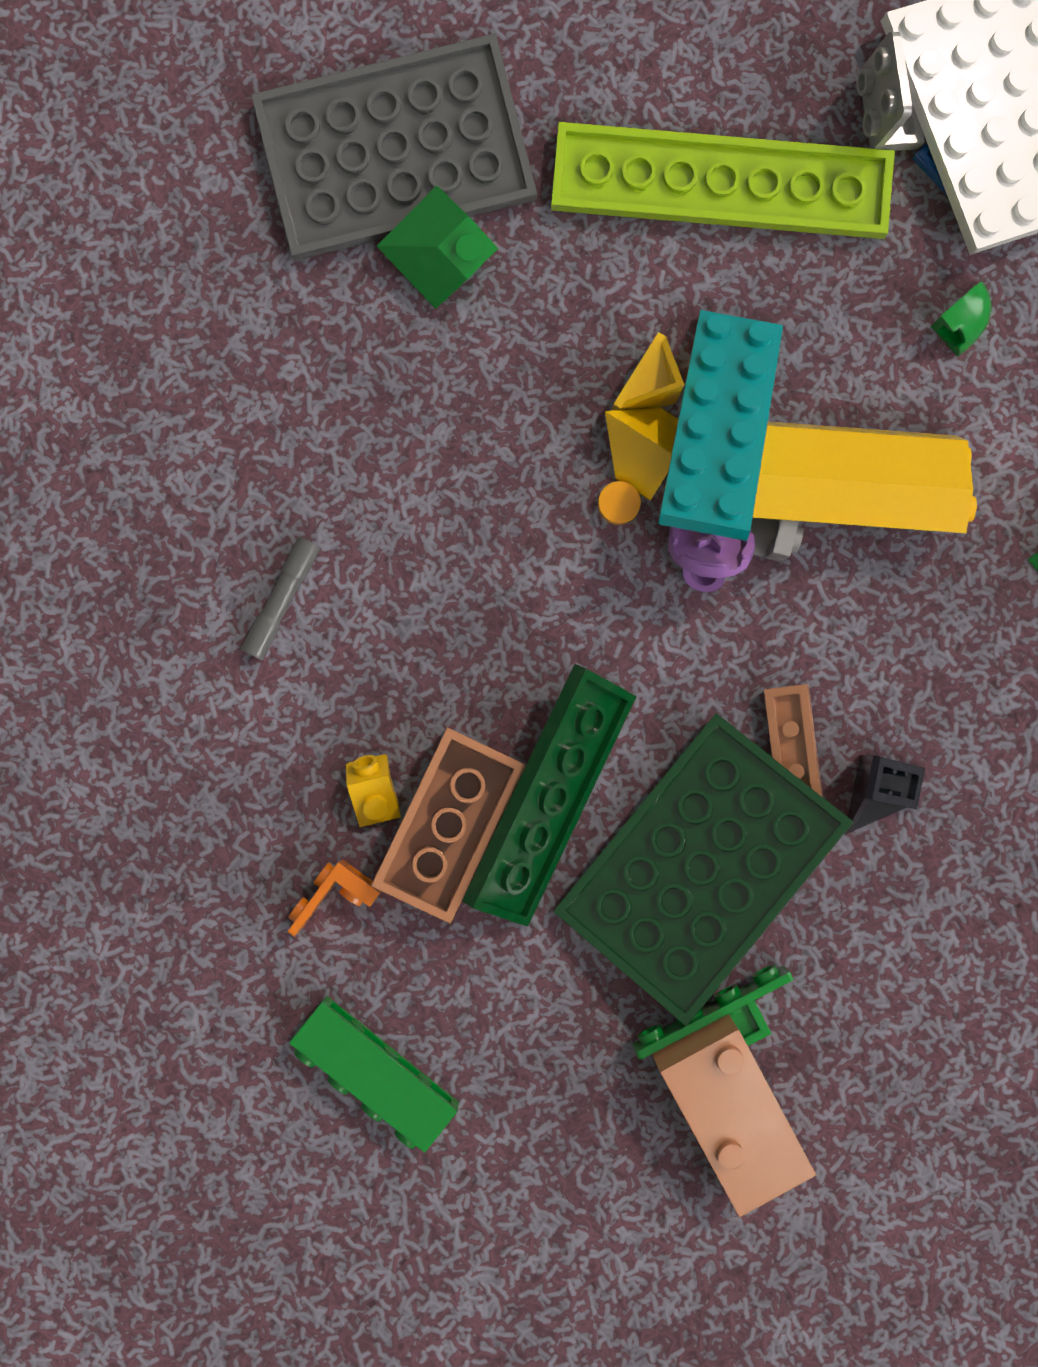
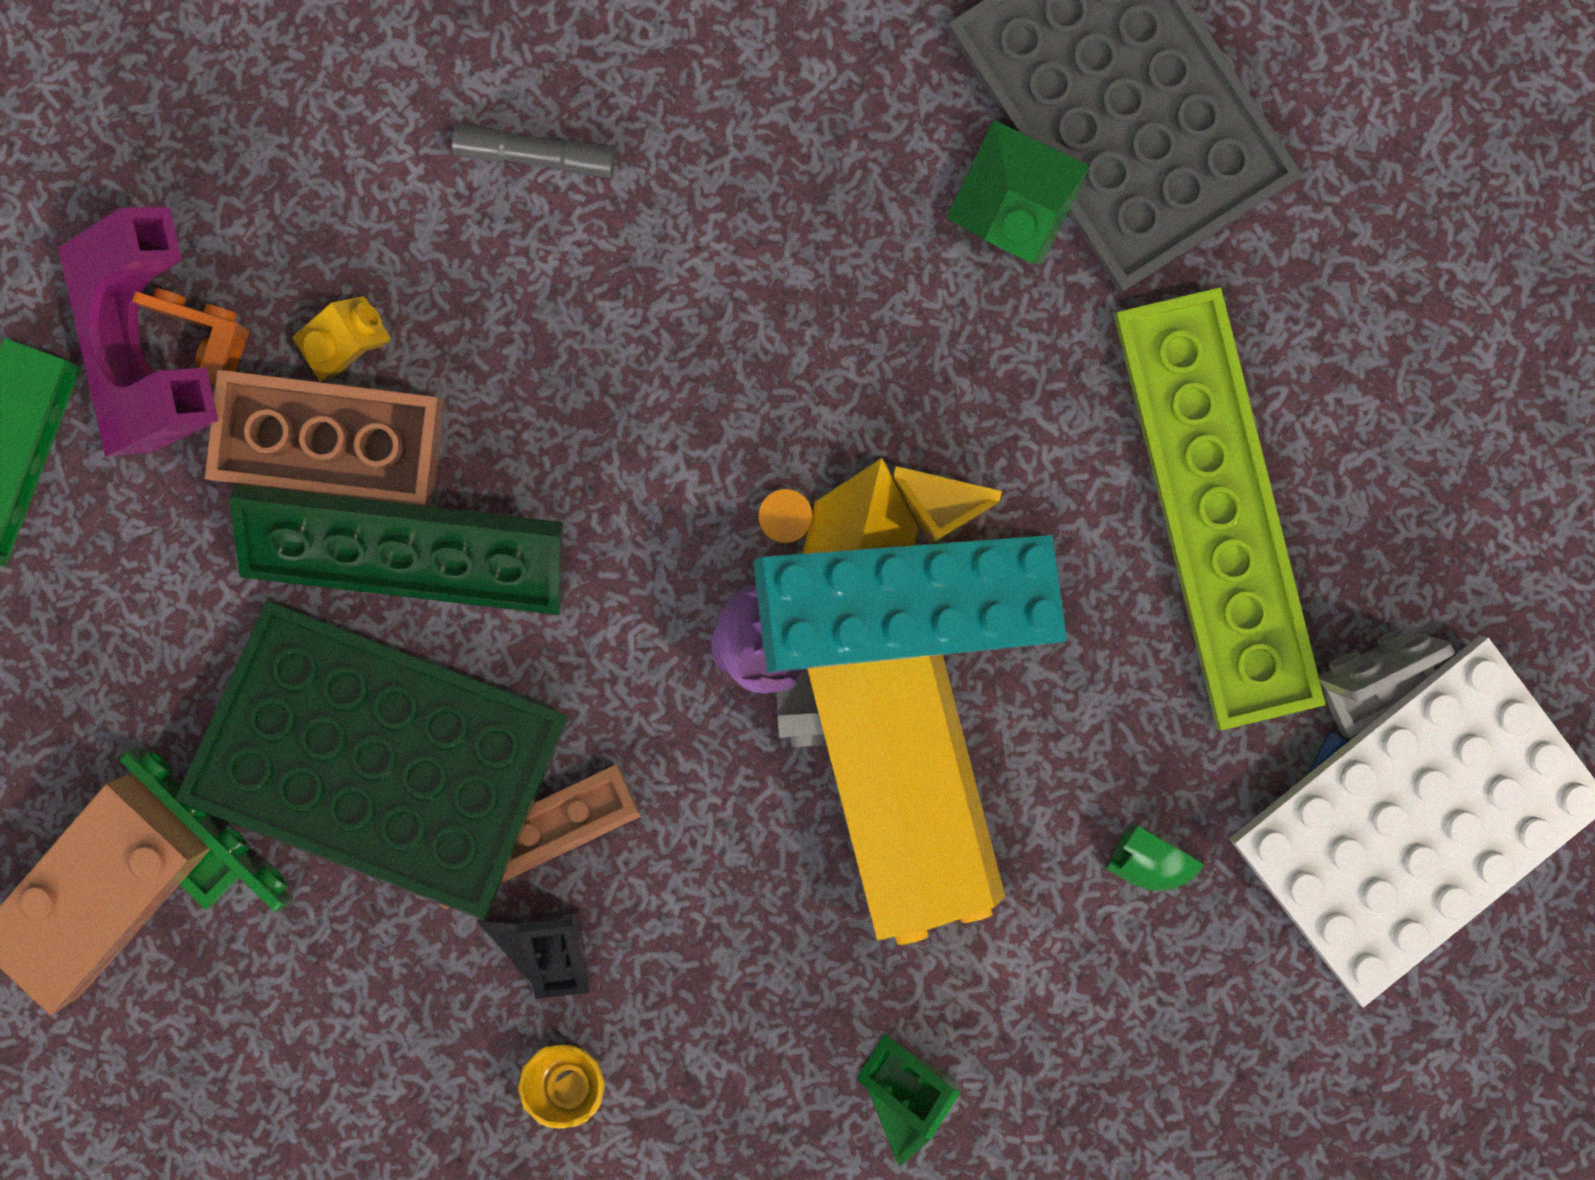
camera: 65 degrees right, 0 degrees up
(270, 955) = (102, 271): none -> magenta arch
(1001, 806) = (571, 1098): none -> yellow hair

